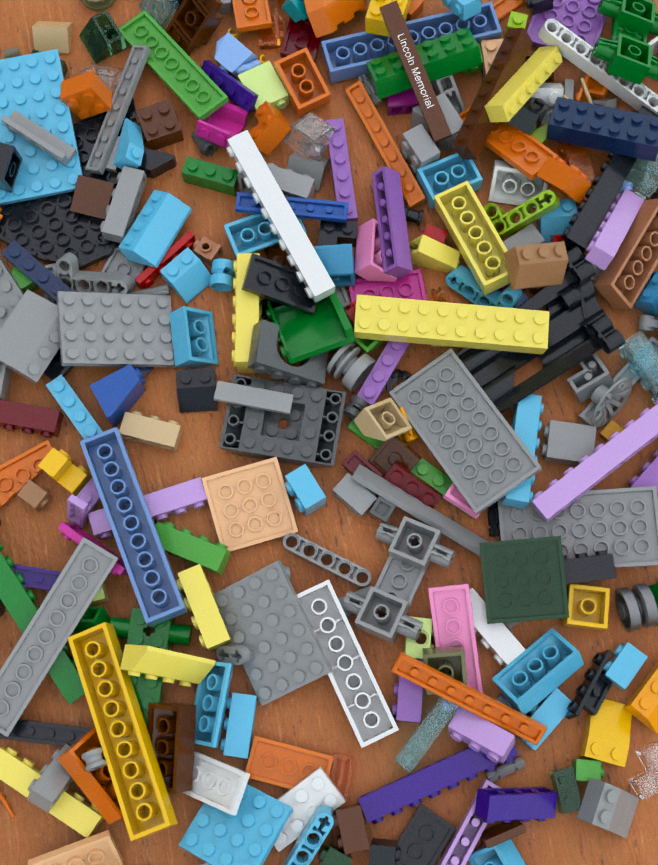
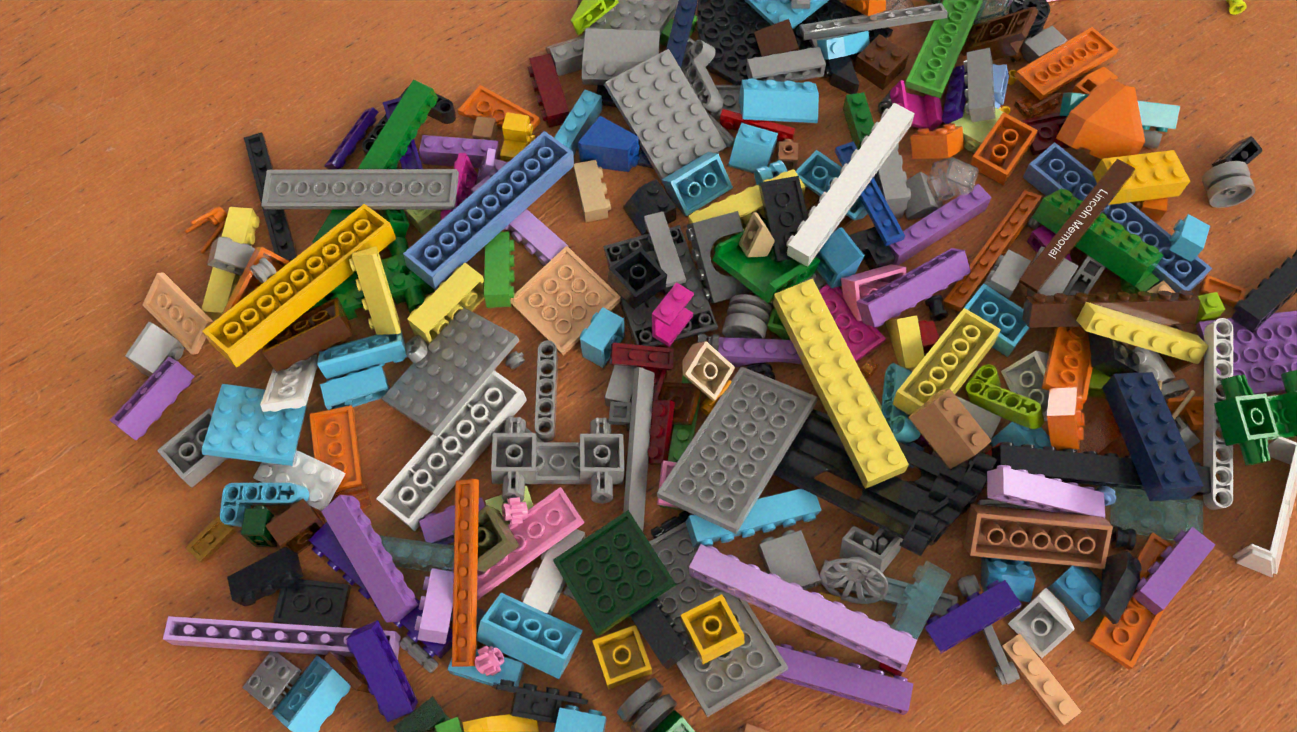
camera: 65 degrees right, 10 degrees down
(42, 529) = (445, 150): none -> medium lavender brick
(236, 62) = (980, 85): none -> light grey brick
(274, 433) = (637, 277): none -> black brick
(290, 319) = (756, 238): none -> tan slope
(328, 421) = (671, 315): none -> dark pink panel
(342, 466) = (641, 356): none -> dark red plate
(415, 774) = (370, 558): none -> medium lavender brick
(432, 635) = (514, 511): none -> bright pink gear
(548, 712) = (489, 660): none -> bright pink gear
(605, 526) = (712, 629): none -> yellow brick

